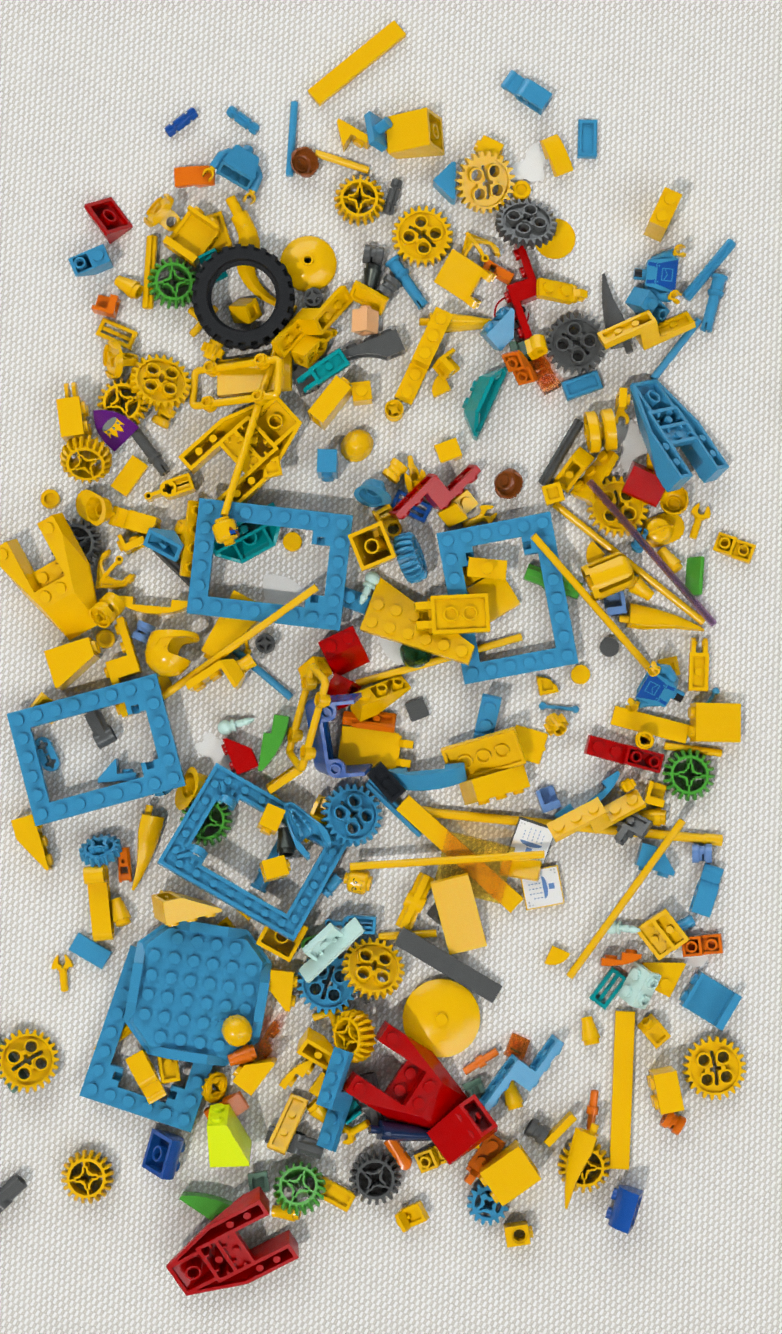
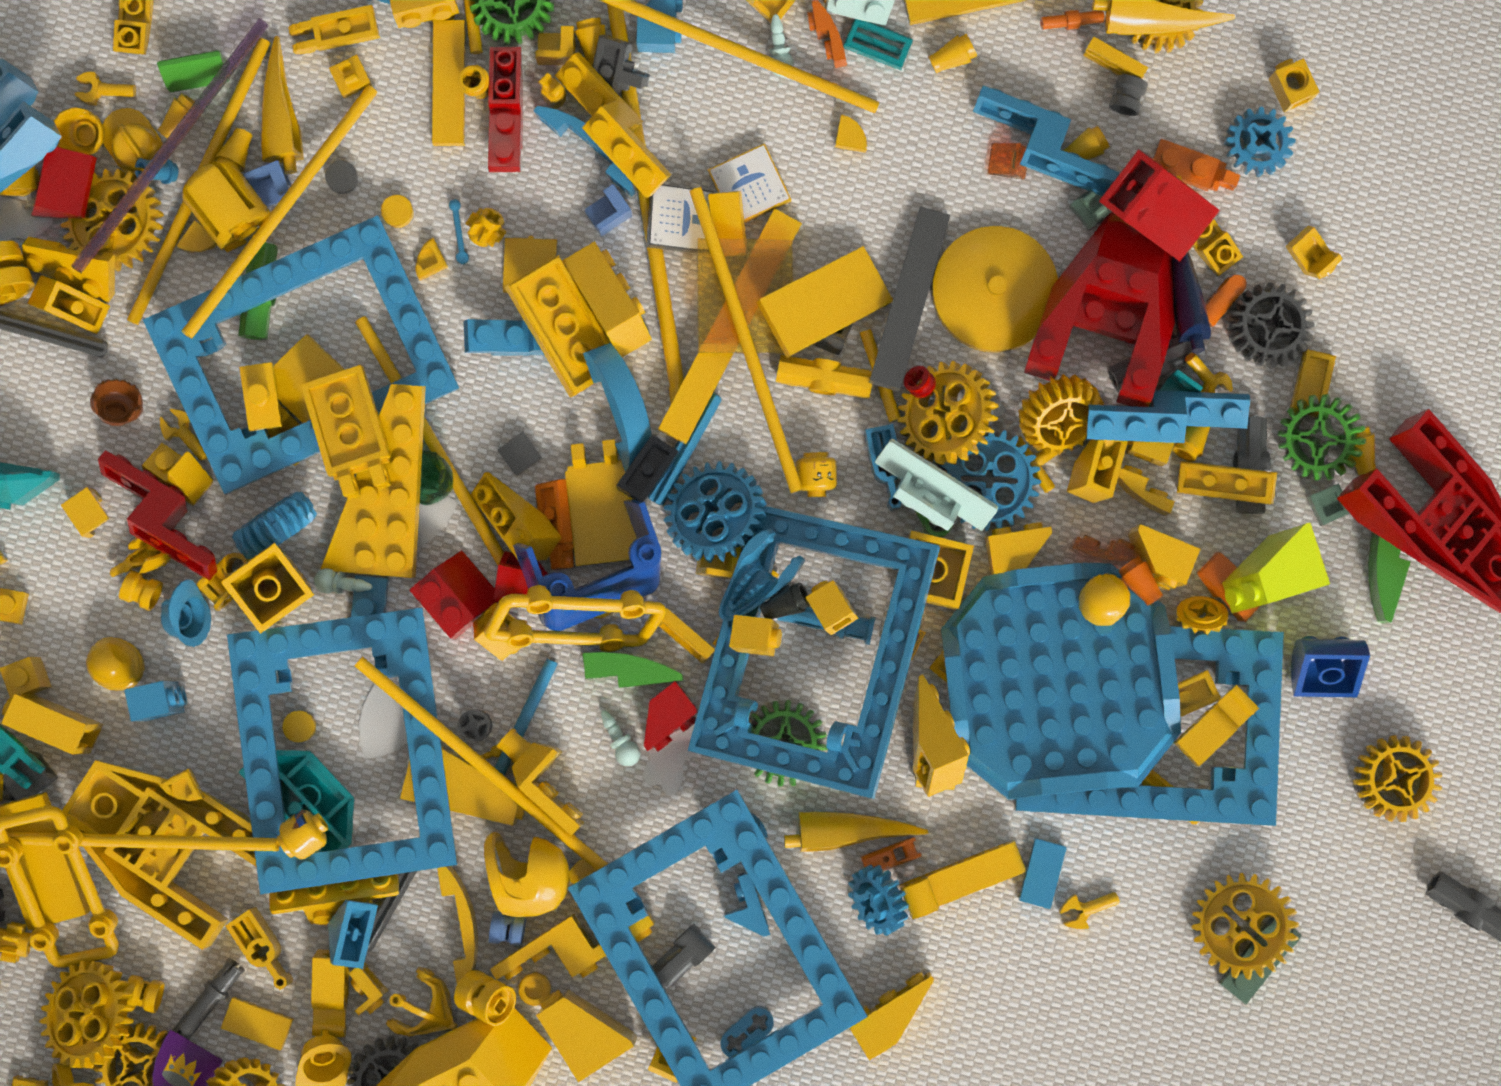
camera: 110 degrees left, 0 degrees up
(120, 912) = (969, 841): yellow cone -> none
(187, 793) = (753, 787): yellow piece -> none
(331, 885) = (833, 513): dark azure pin -> none
(391, 960) = (925, 387): none -> red bush
(393, 407) = (34, 617): yellow wheel -> none
(412, 515) = (208, 540): blue tile -> none
(480, 1061) = (1045, 210): orange bar -> none
(509, 1173) = (1206, 116): yellow slope -> none
(552, 493) = (115, 326): yellow tile -> none
(656, 688) = (386, 83): torso -> none

